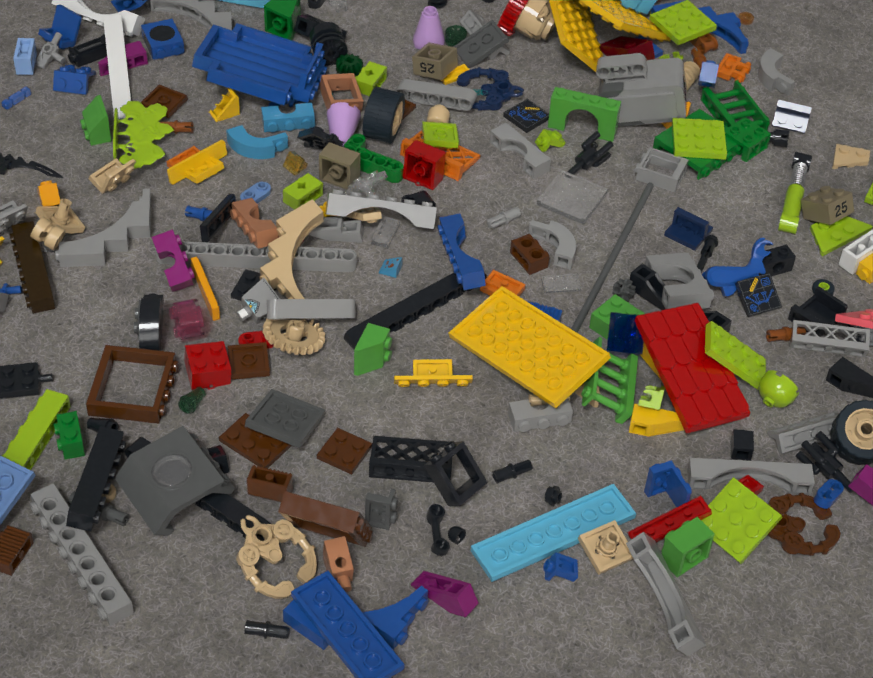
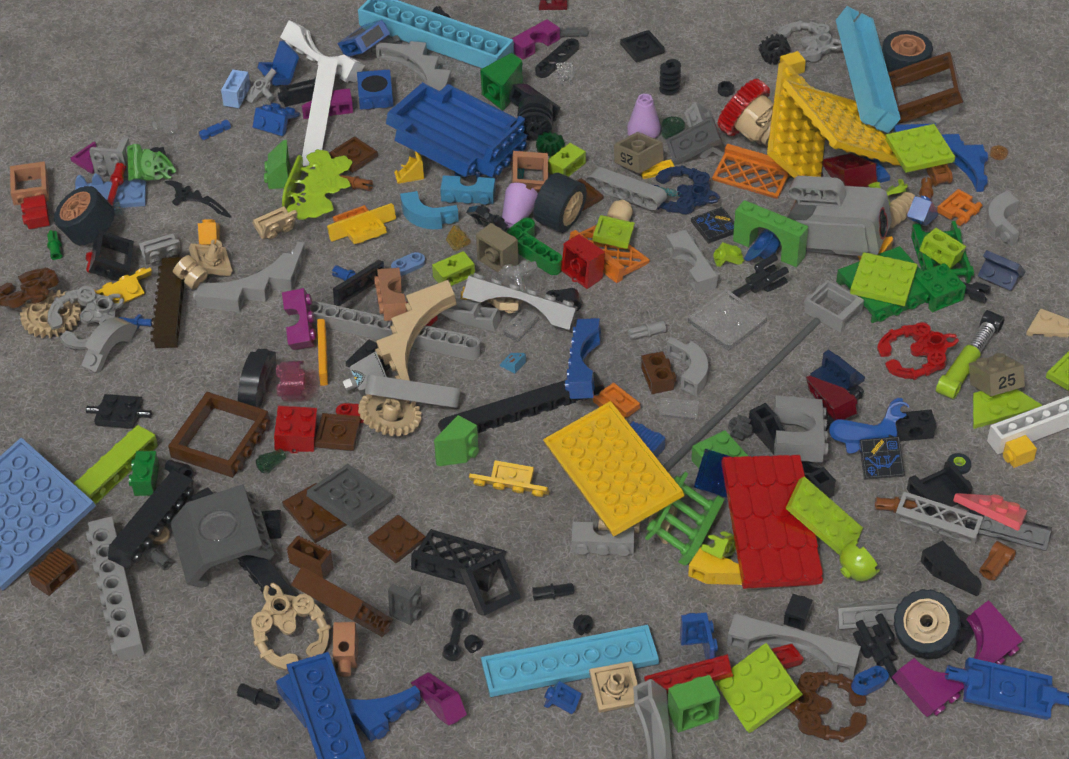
camera: 20 degrees right, 0 degrees up
(543, 55) = (757, 162): none -> orange fence
(579, 126) = (764, 246): none -> blue piece
(702, 250) = (835, 399): none -> dark red slope
(738, 104) = (942, 248): none -> lime brick
(755, 189) = (928, 344): none -> red piece

